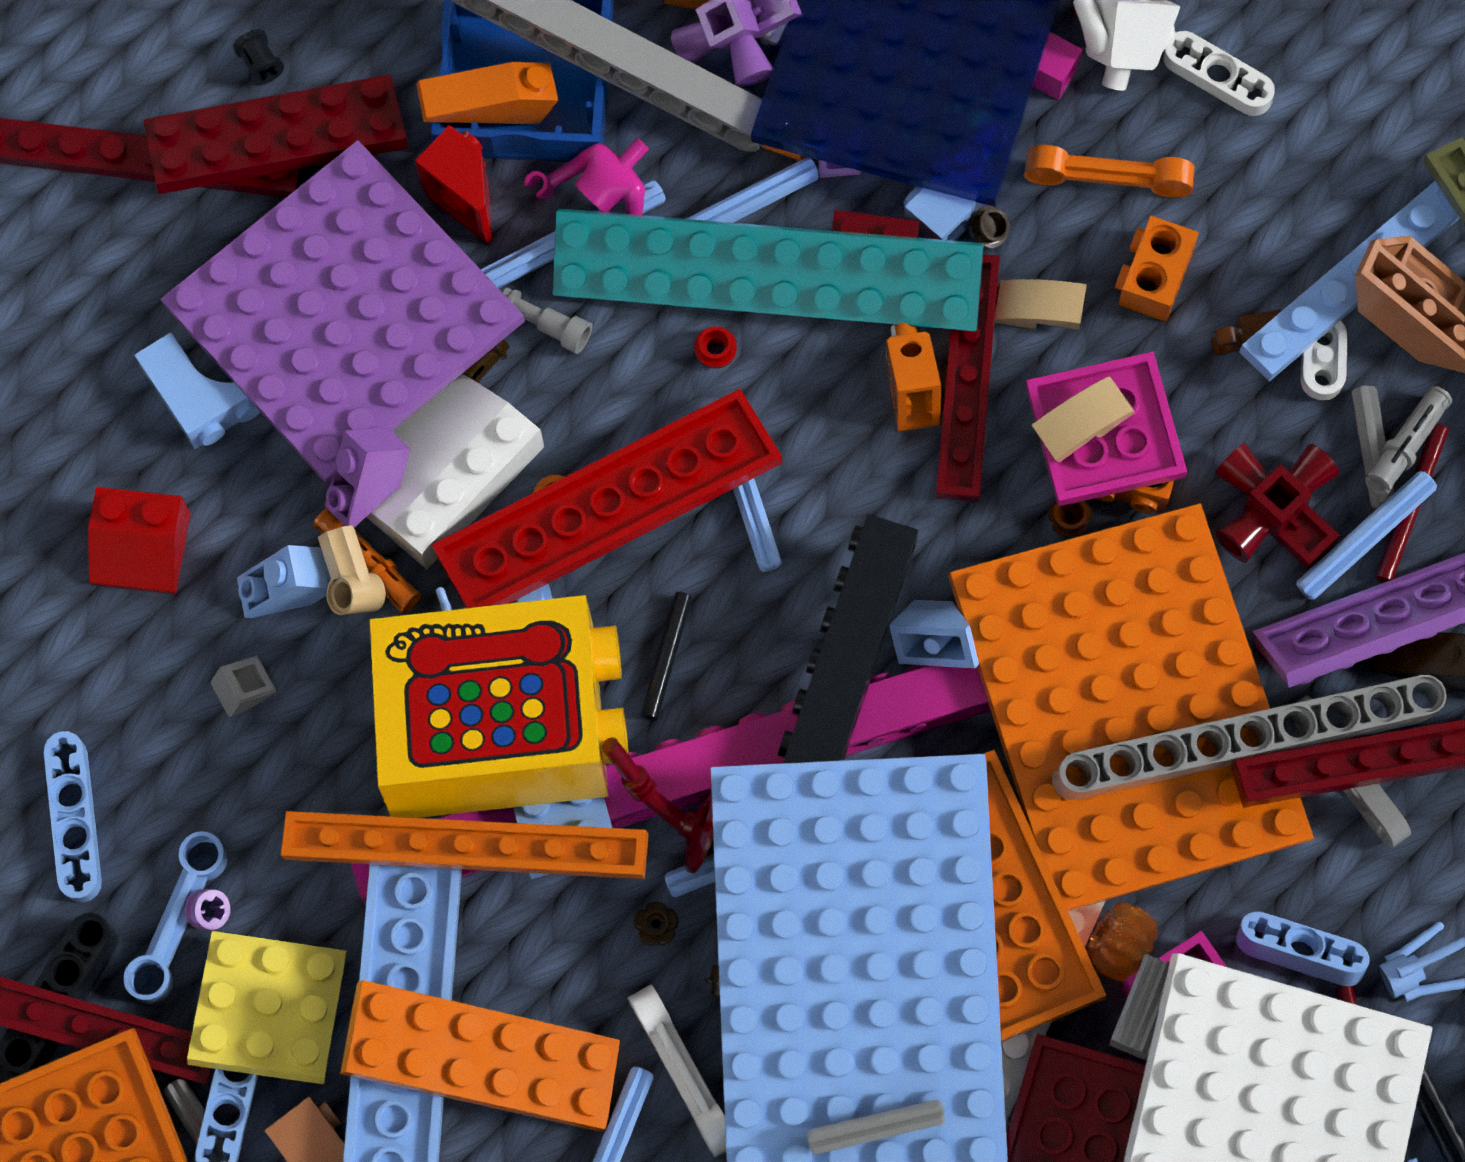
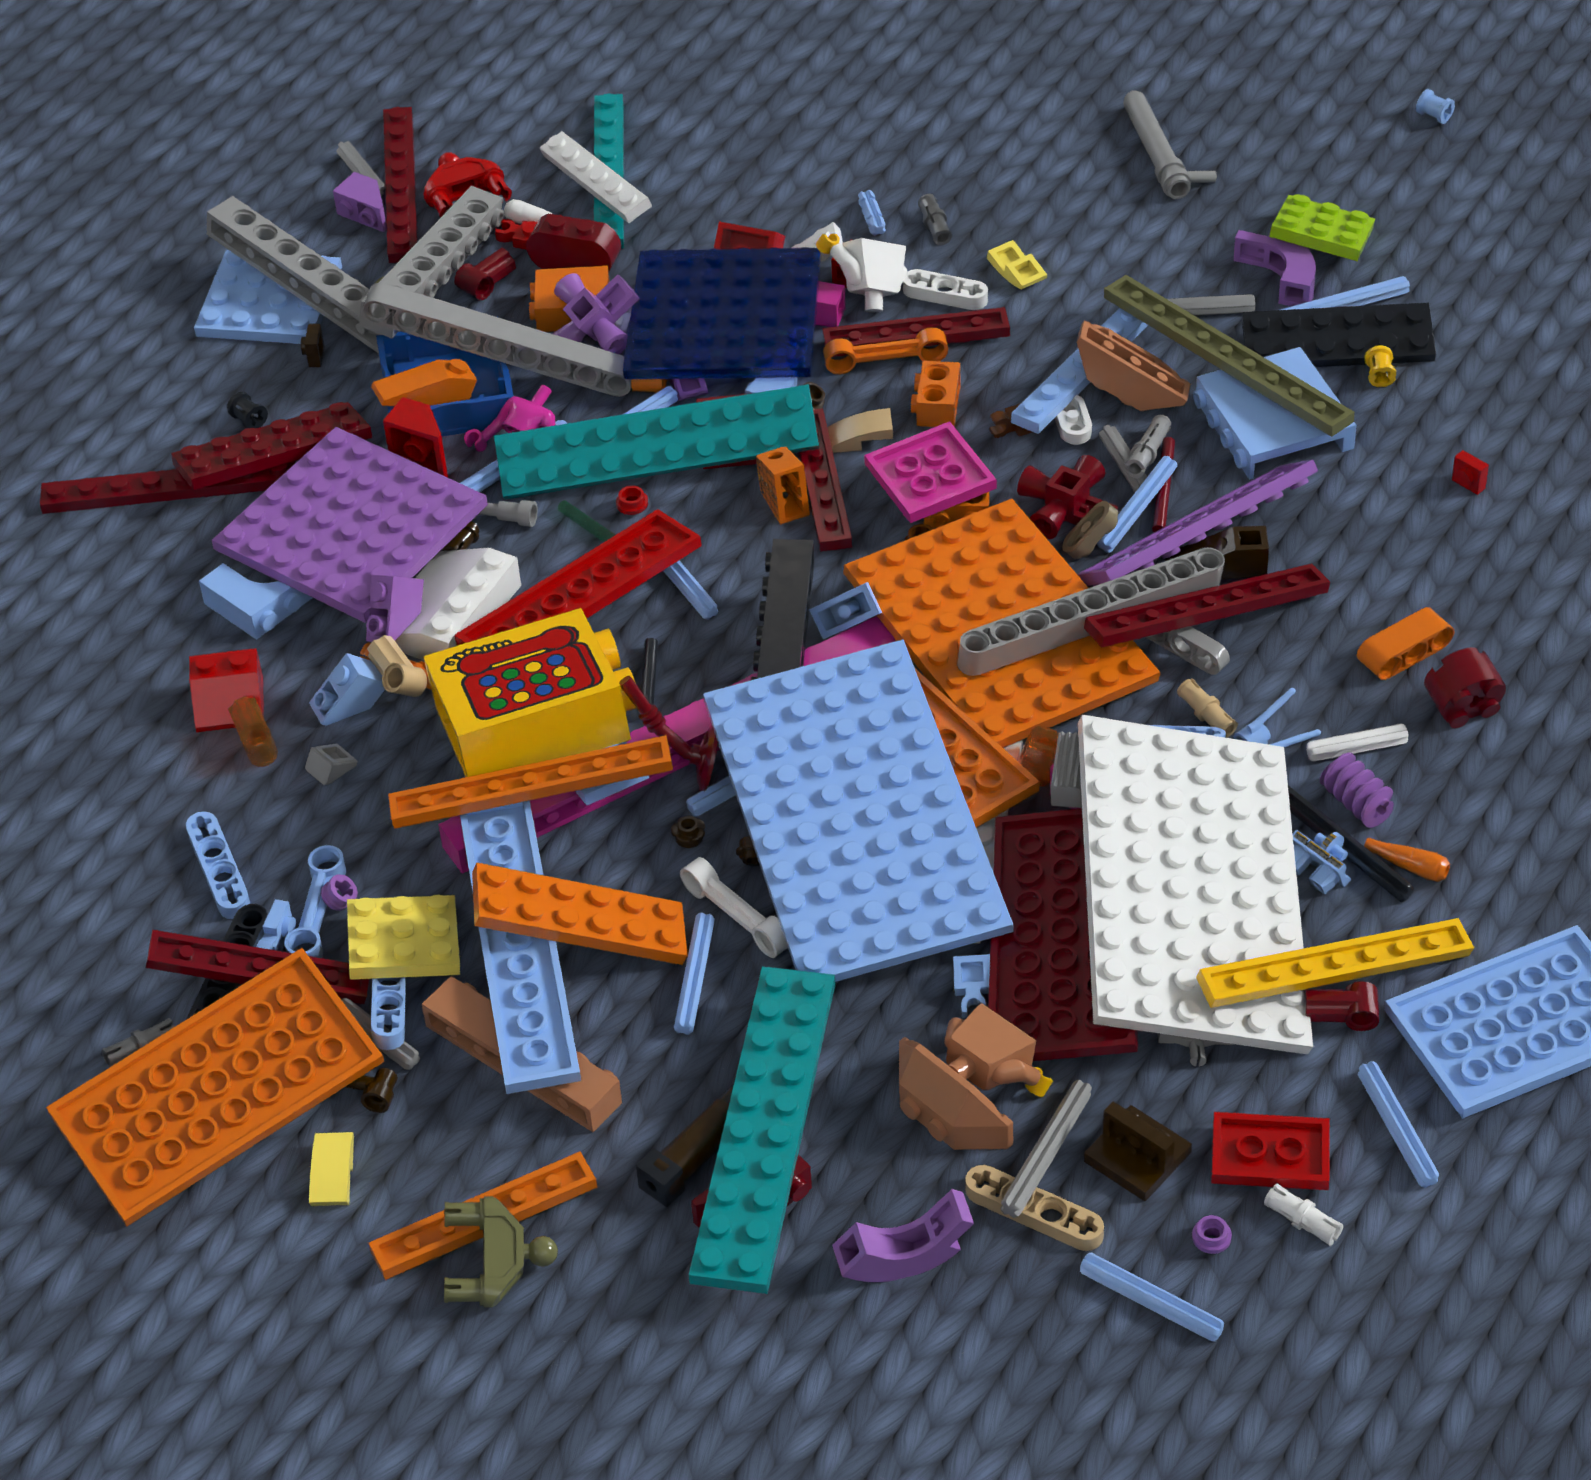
camera: 15 degrees left, 25 degrees down
(122, 946) = (277, 926): none -> light blue plate
(152, 615) = (253, 731): none -> clear orange piece
(653, 371) = (585, 521): none -> clear green bar
(875, 1127) = (893, 879): light grey axle -> none
(1082, 418) = (910, 459): tan slope -> none
(1146, 141) = (956, 326): none -> dark red plate
(1291, 571) = (1090, 530): none -> dark tan plate
(1324, 55) = (1015, 266): none -> light yellow slope
(1358, 907) = (1206, 707): none -> tan pin

